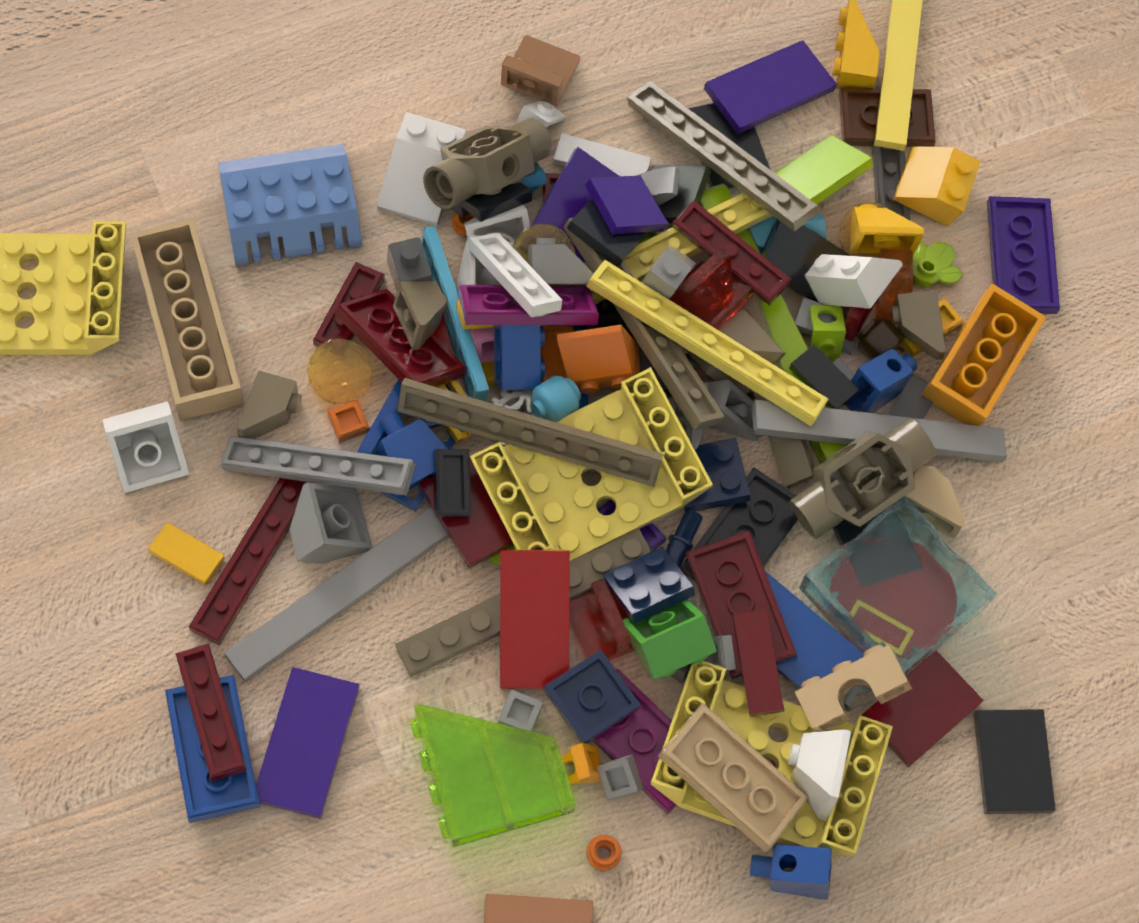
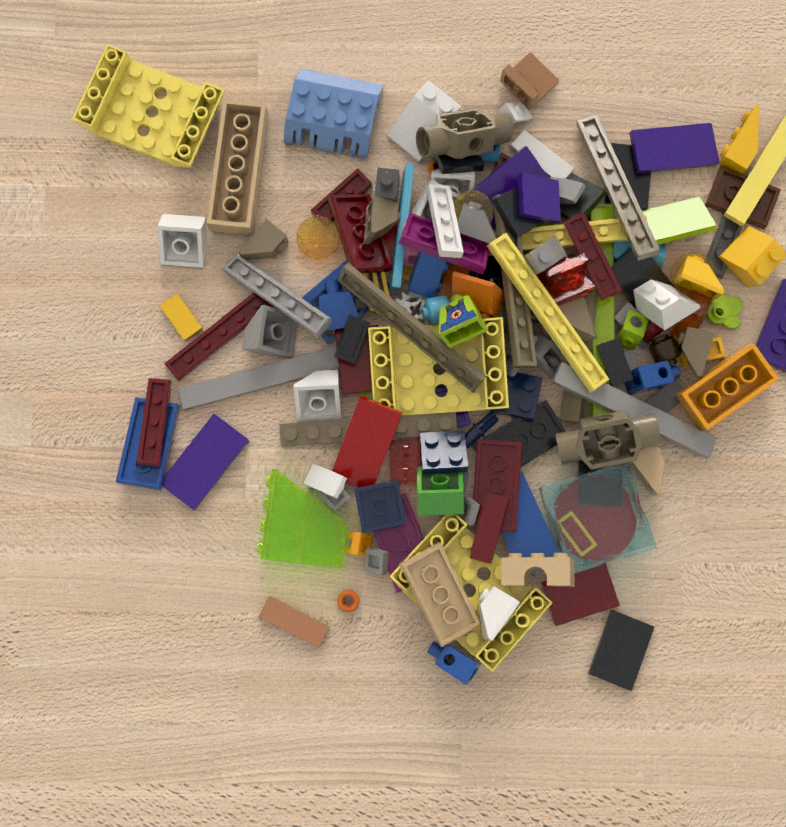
camera: 30 degrees right, 15 degrees up
(348, 421) = (310, 270): orange tile -> none
(437, 583) = (318, 397): none -> white slope
(497, 692) = (325, 481): none -> white slope
(597, 392) = (460, 321): none -> lime torso

